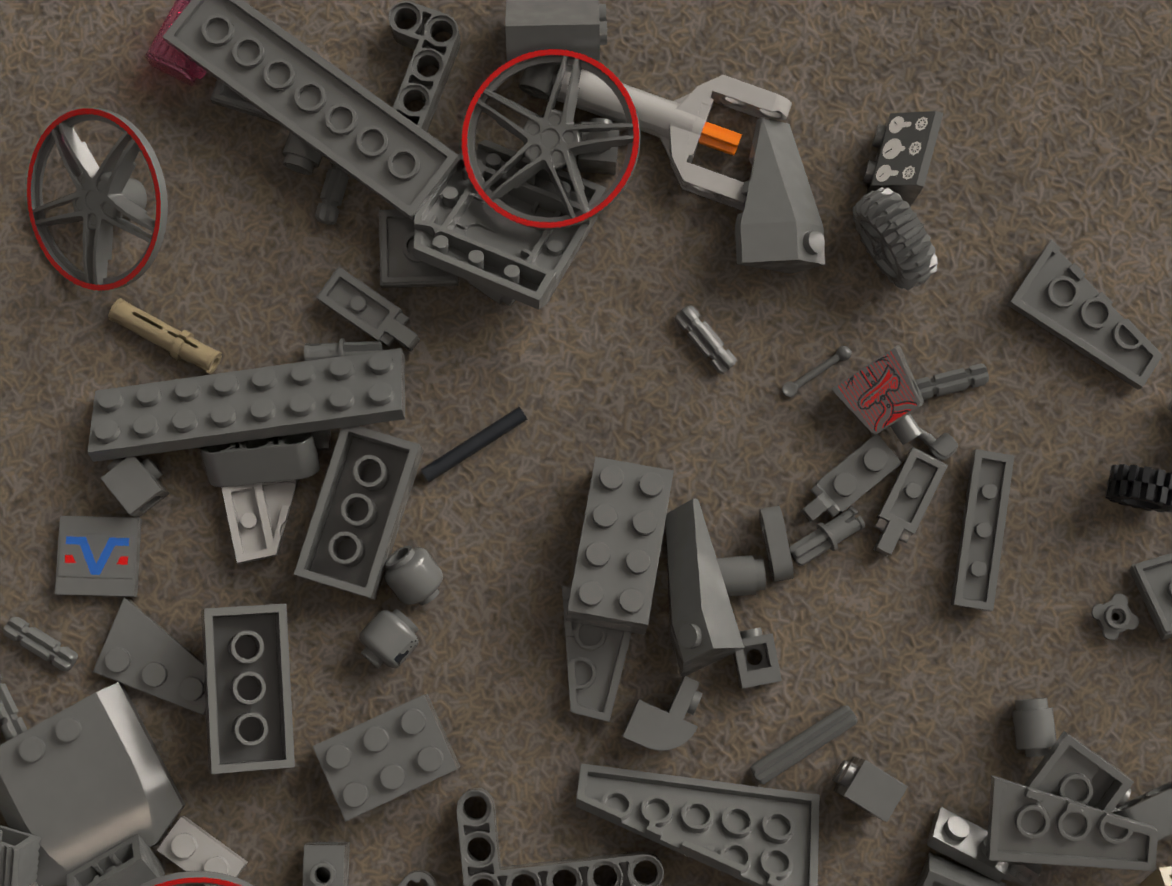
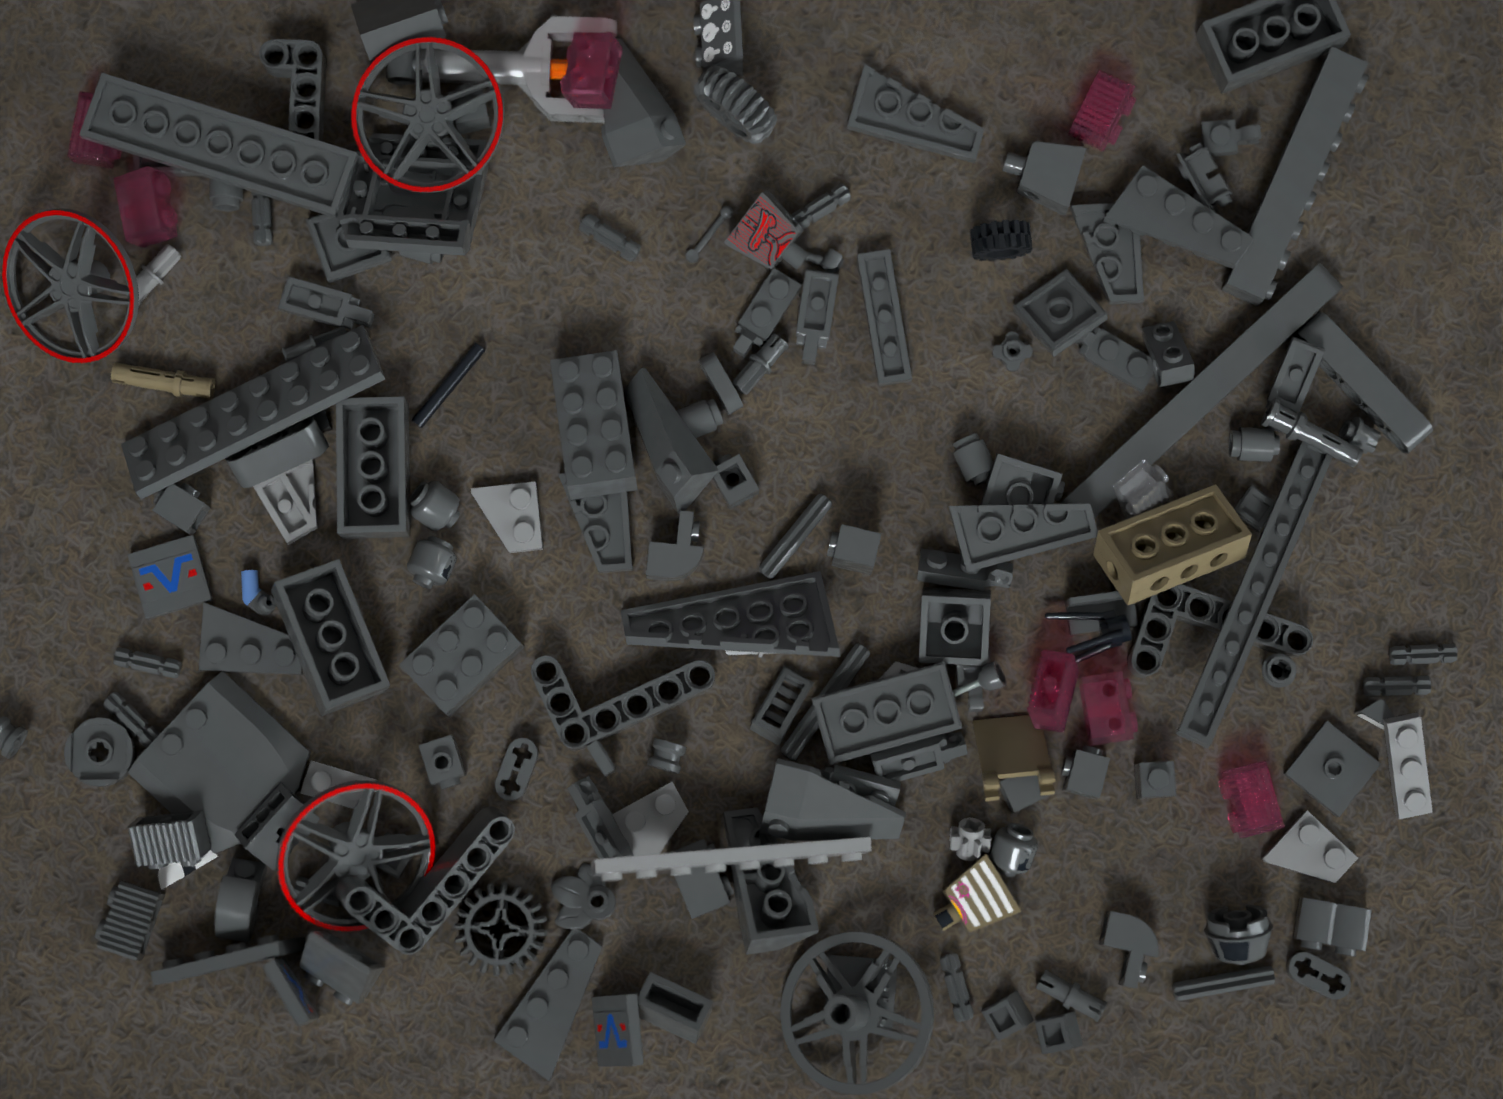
camera: 20 degrees left, 0 degrees up
(182, 609) = (254, 596): none -> arm
(195, 214) = (156, 270): none -> light grey axle
(210, 139) = (146, 207): none -> clear pink brick
(497, 613) = (513, 514): none -> light grey wing
(748, 148) = (591, 70): none -> clear pink brick

